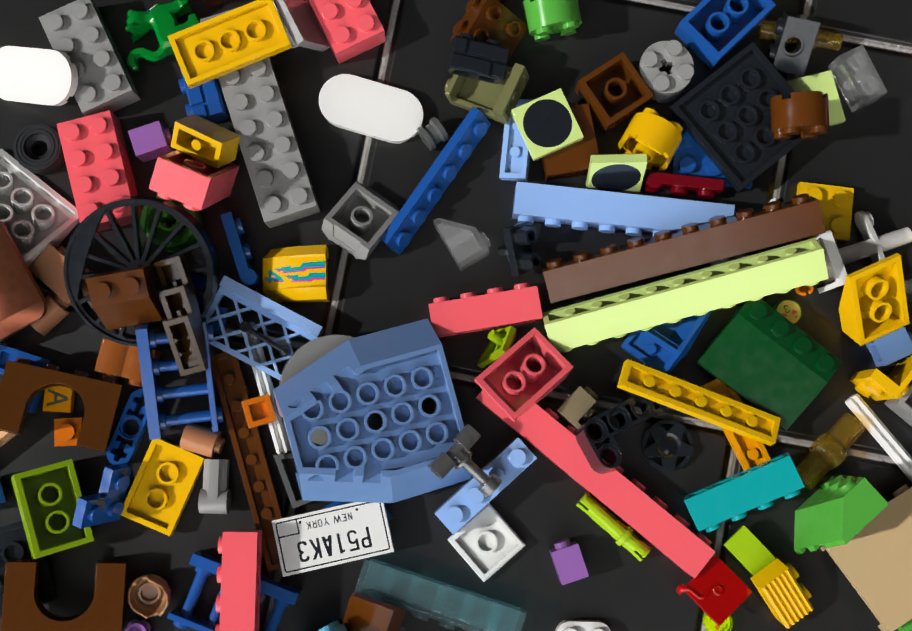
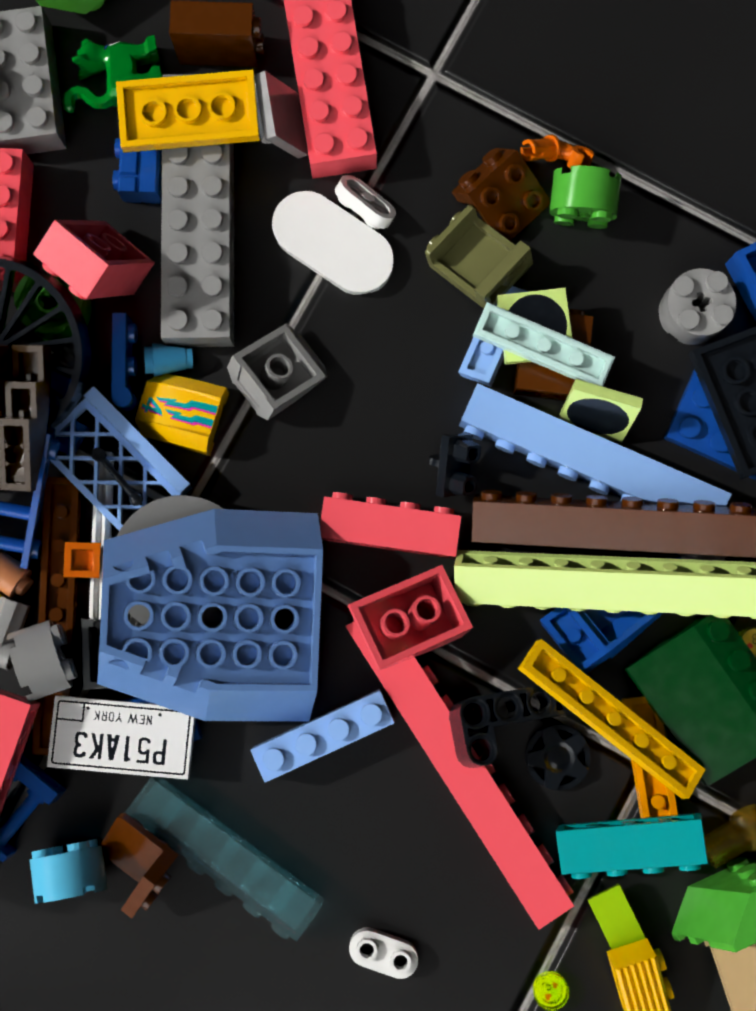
camera: 20 degrees right, 0 degrees up
(151, 141) = (61, 200): medium lavender brick -> none
(205, 141) = (121, 219): yellow brick -> none
(253, 496) = (41, 659): none -> light grey brick
(272, 237) = (166, 359): none -> dark azure cone
(386, 69) = (365, 202): none -> white plate
(432, 133) = (396, 295): dark grey wheel -> none
(436, 181) = (381, 352): blue plate -> none
(459, 456) = (300, 691): flat silver bar -> none
(463, 242) = (390, 435): clear slope -> none
(477, 59) = (476, 221): black brick -> none
(486, 542) = (303, 803): white tile -> none
(500, 342) = (396, 569): lime piece -> none
(557, 137) = (543, 345): none -> light aqua tile
(568, 561) = (393, 859): medium lavender brick -> none
(577, 406) = (465, 675): dark tan brick -> none
(607, 521) = (465, 841): lime pin -> none
(614, 92) = (629, 312): reddish brown brick -> none
(652, 136) = (658, 380): yellow brick -> none
(682, 184) = (676, 449): dark red plate -> none
(716, 590) = (560, 953): red hat -> none

